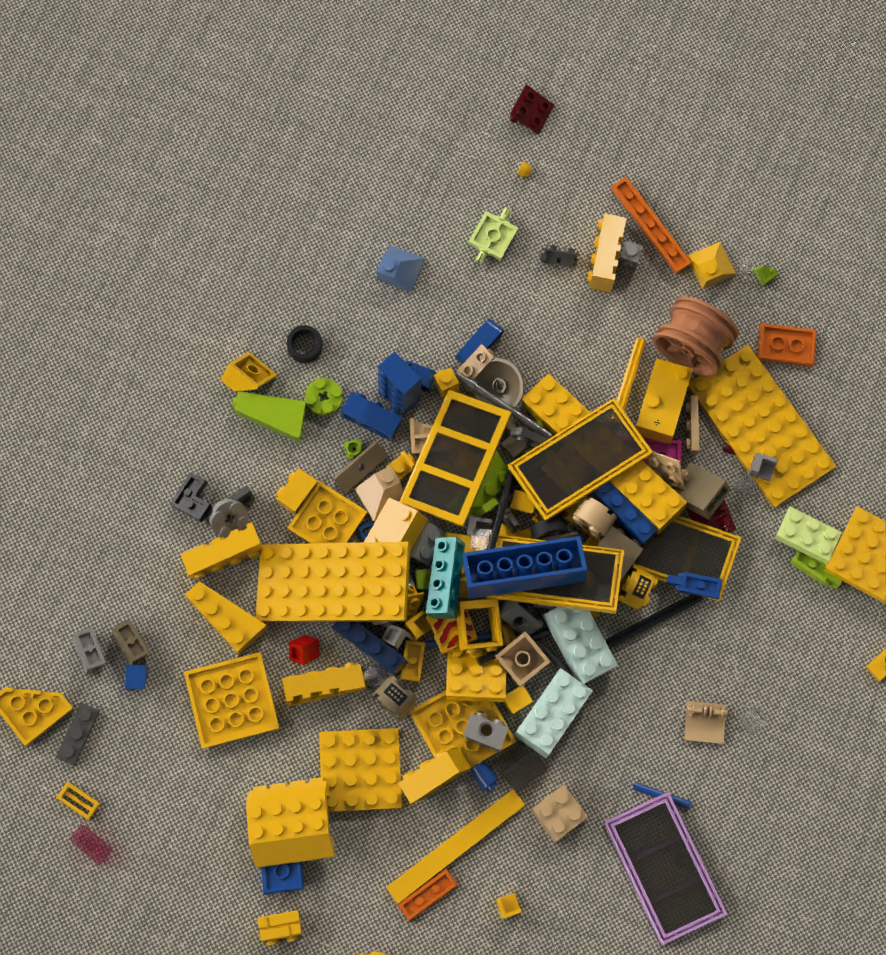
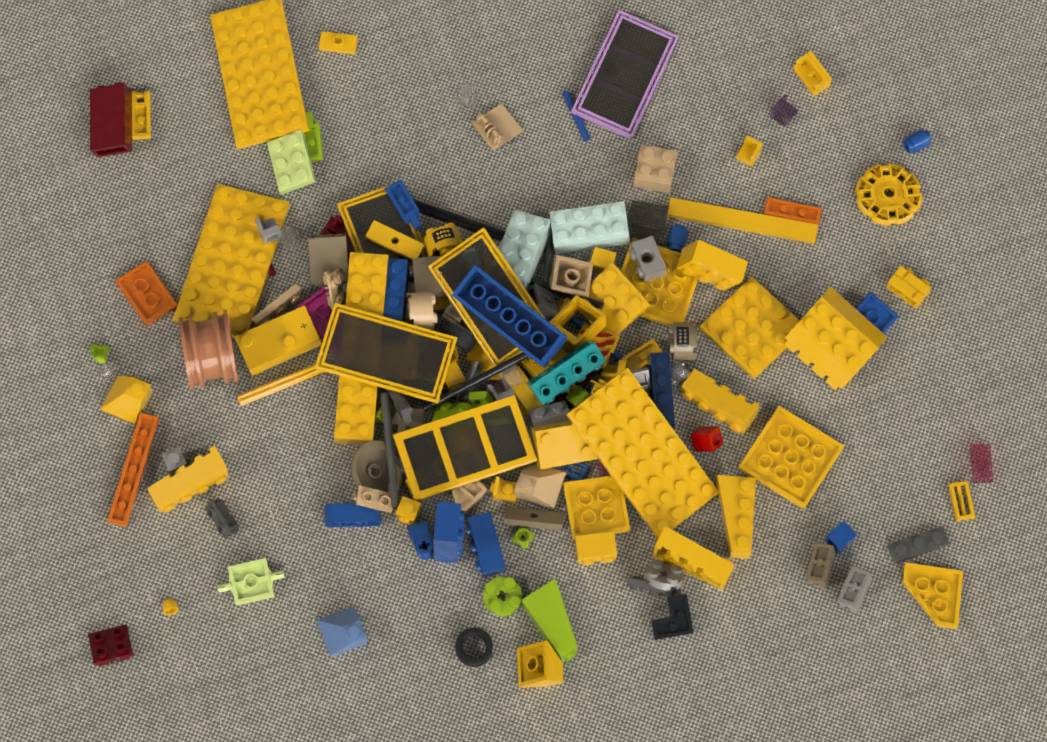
camera: 130 degrees left, 5 degrees down
(681, 547) = (385, 235): none -> yellow tile

